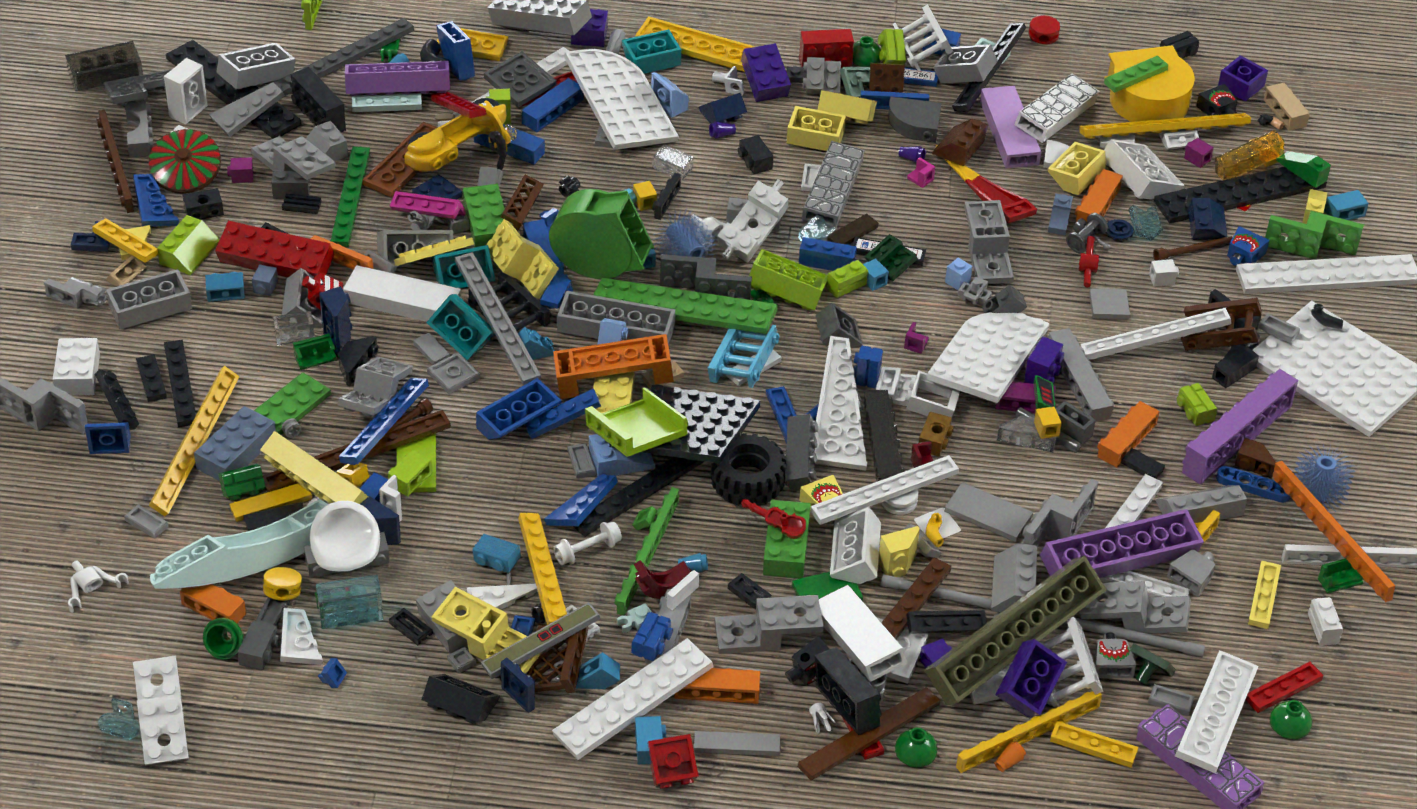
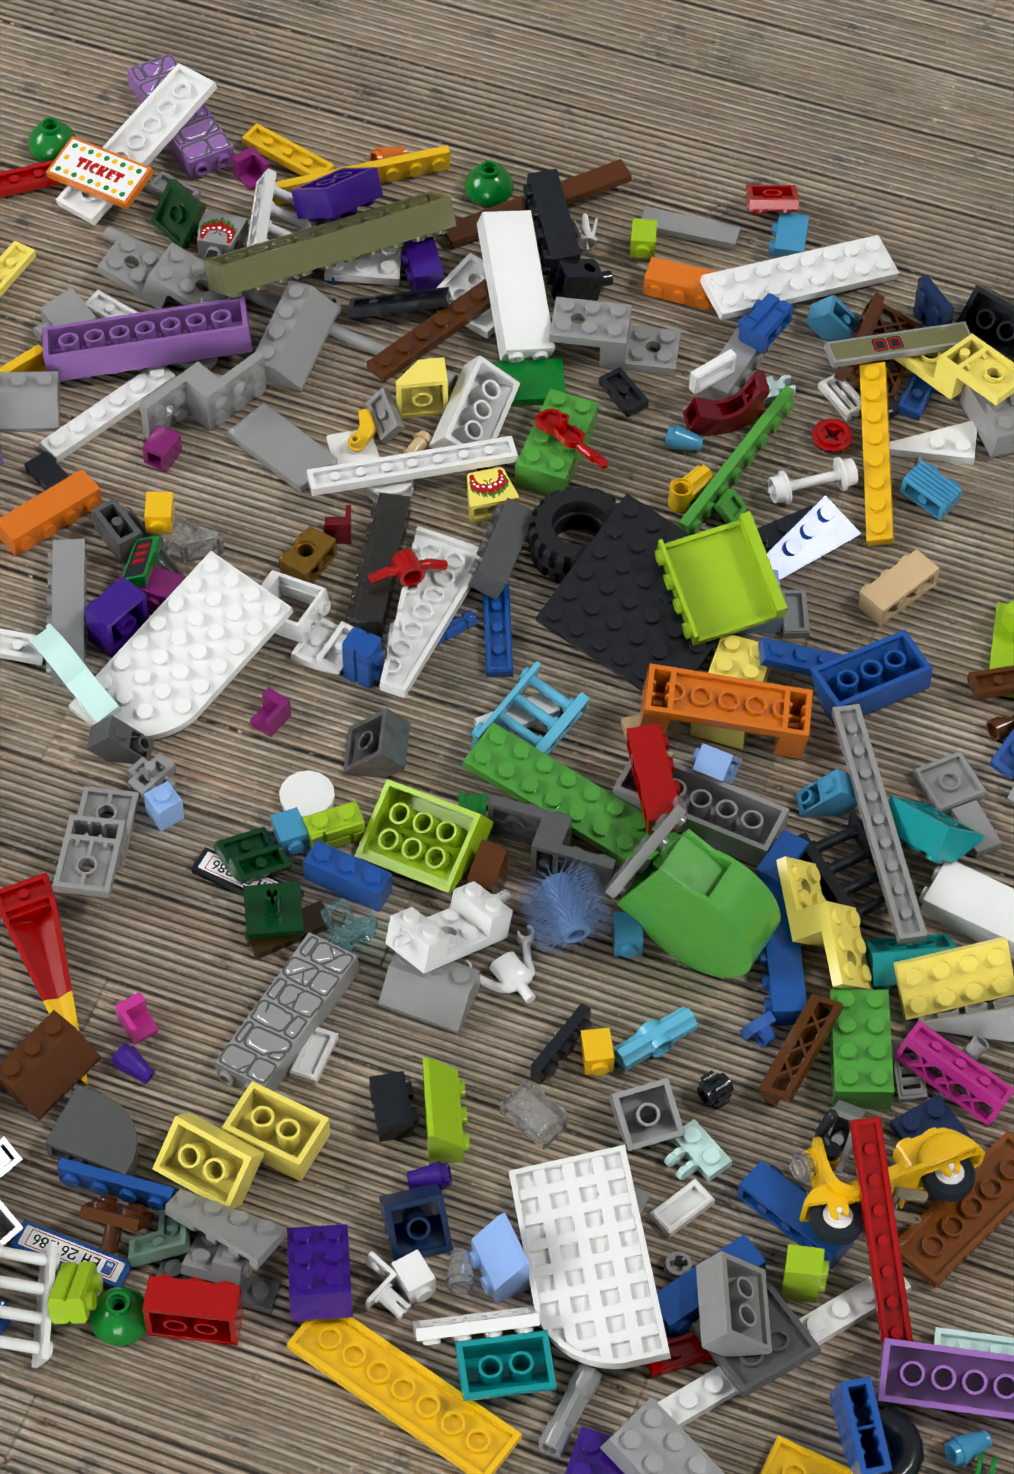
camera: 165 degrees left, 10 degrees up
(509, 482) = (898, 587): none -> tan brick
(534, 77) = (733, 1307): none -> light grey slope
(568, 112) = (677, 1256): none -> light grey bush
(571, 165) = (700, 1151): none -> light aqua hinge
(575, 140) = (682, 1208): none -> white tile
(580, 581) = (832, 427): none -> red gear
(608, 169) = (646, 1114): none -> light grey slope
(639, 256) = (666, 822): none -> light grey wing
(649, 306) = (652, 772): none -> red brick
(676, 63) = (463, 1326): none -> white plate
(679, 526) = (686, 489): none -> yellow piece
(692, 93) = (460, 1274): none -> clear cone
(715, 86) = (414, 1277): none -> white brick
(725, 149) = (444, 1112): none -> lime slope
(740, 264) = (489, 867): none -> reddish brown slope
(771, 713) = (643, 238): none -> lime brick
(820, 76) = (234, 1228): none -> light grey wing
(859, 417) = (407, 568): none -> red piece
(864, 230) = (273, 910): none -> dark green tile
(872, 300) = (308, 792): none -> white tile
(890, 524) = (421, 442): none -> tan pin
(1044, 323) = (74, 674): none -> light aqua piece
(1072, 486) = (162, 448): none -> magenta brick
(1116, 727) = (249, 167): none -> magenta panel
(1232, 678) = (99, 172): none -> tile

